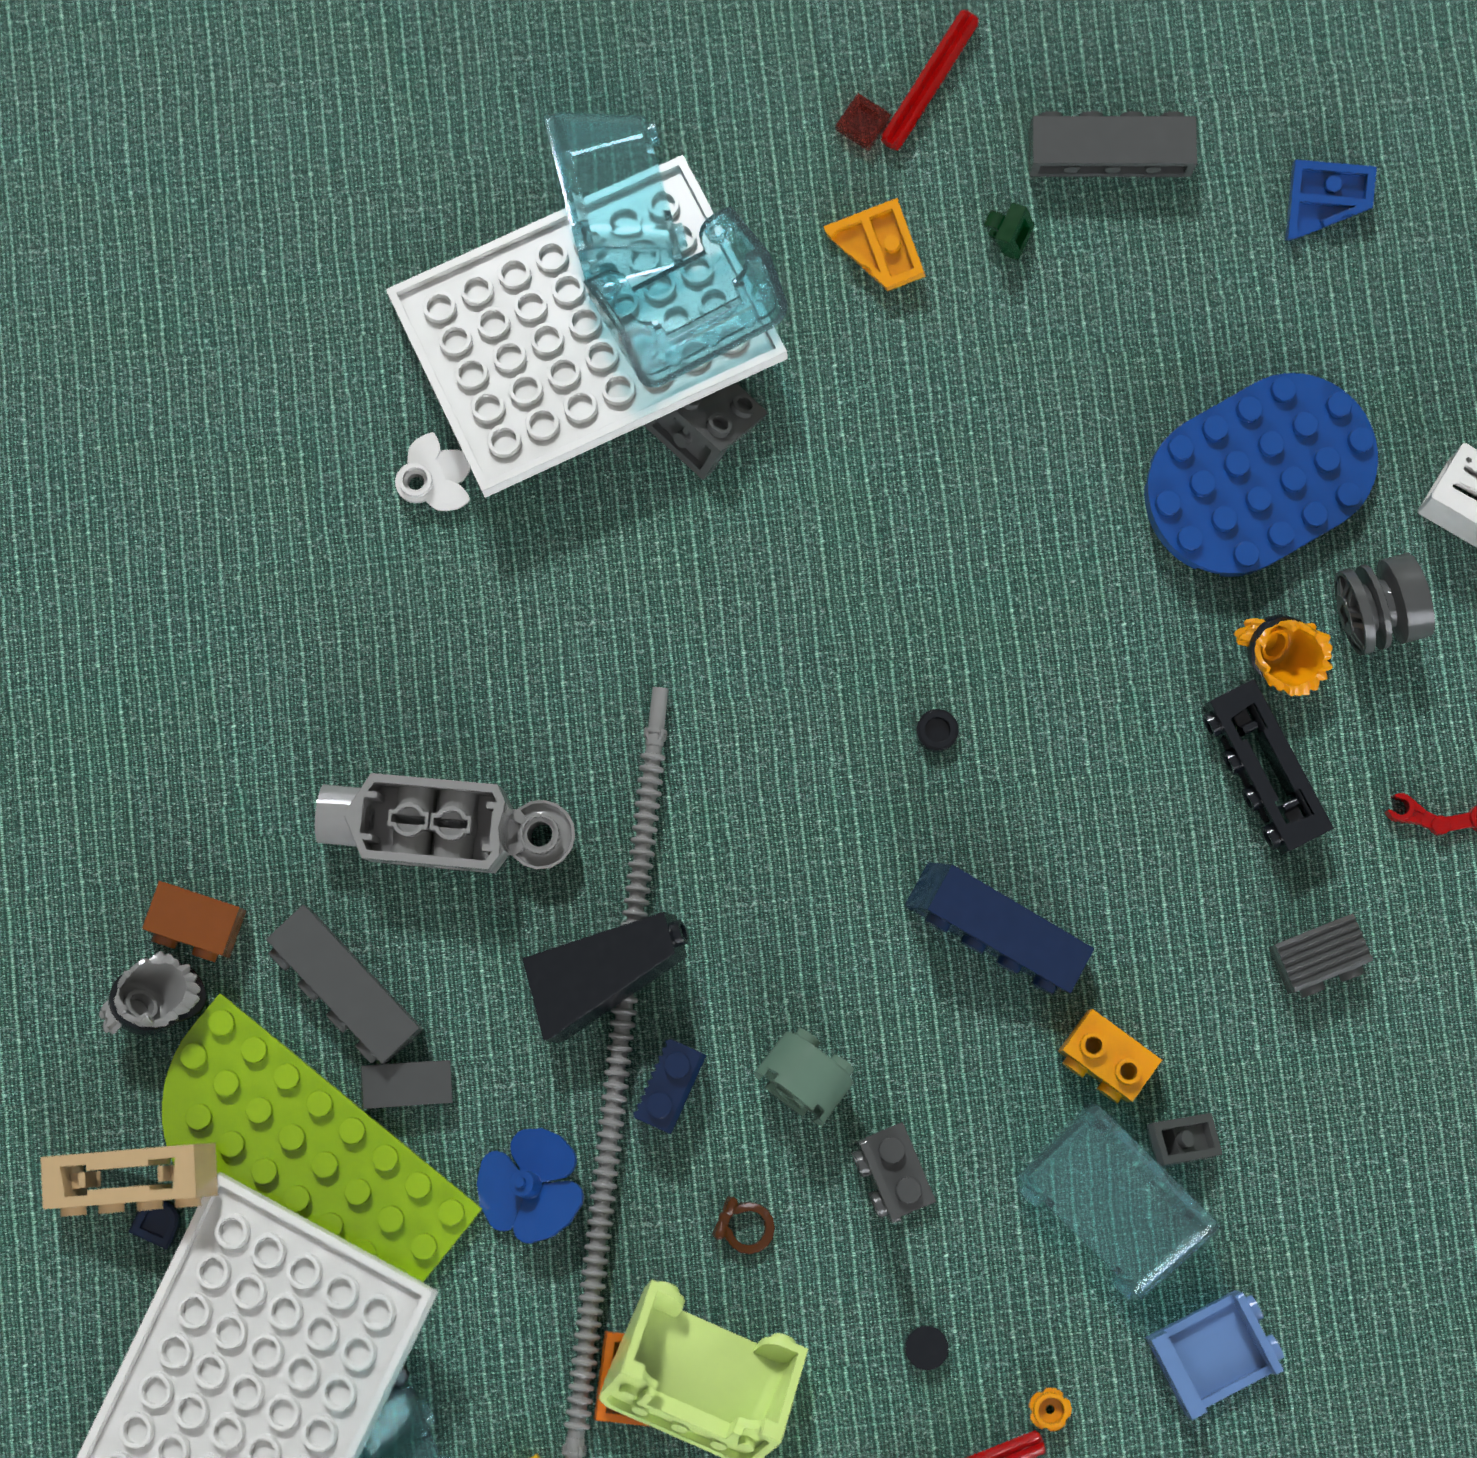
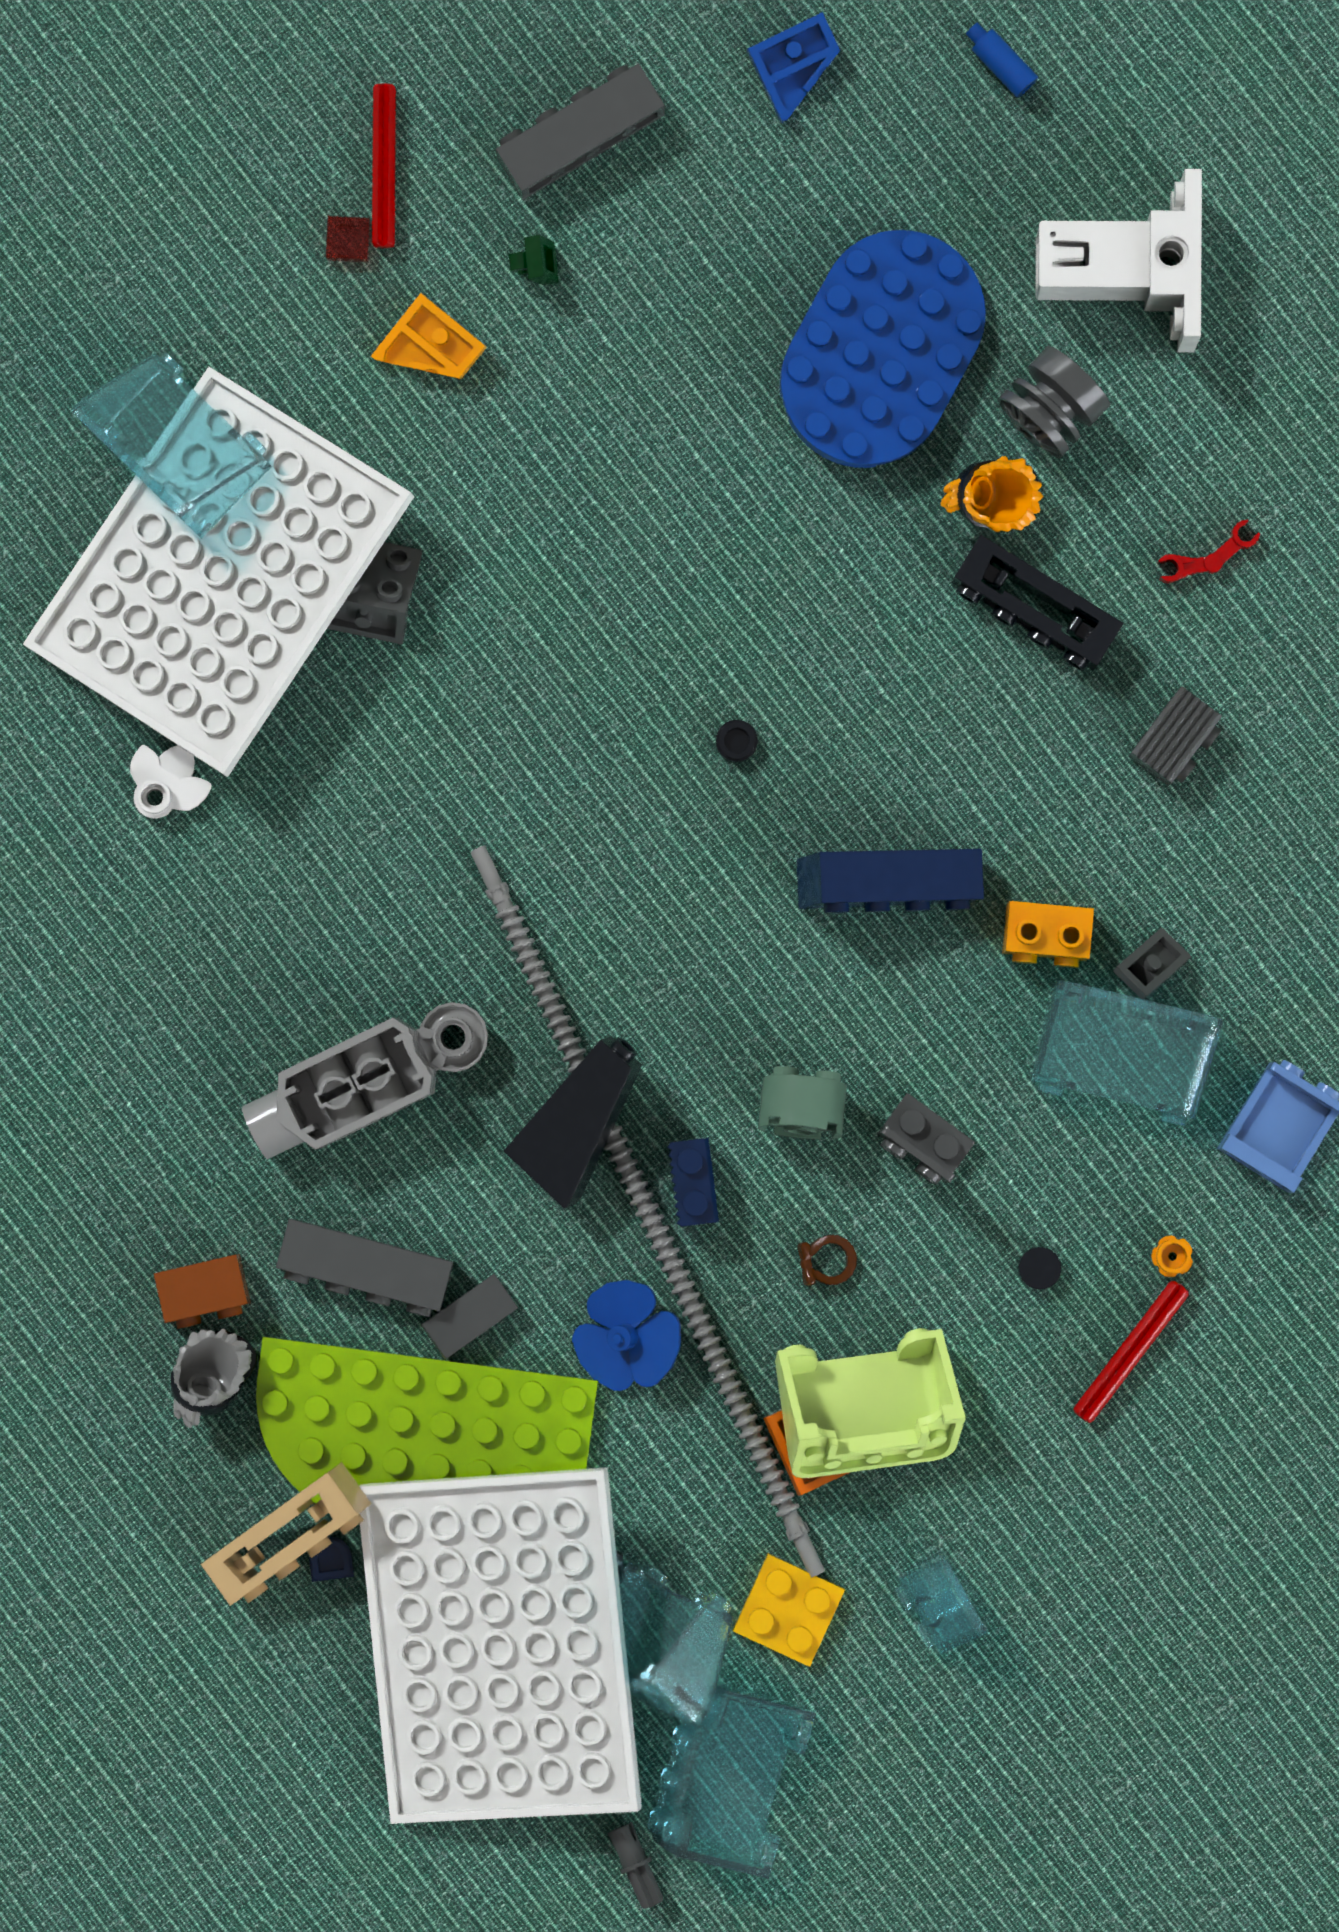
camera: 35 degrees left, 5 degrees up
(694, 306) = (304, 501): clear light blue windscreen -> none

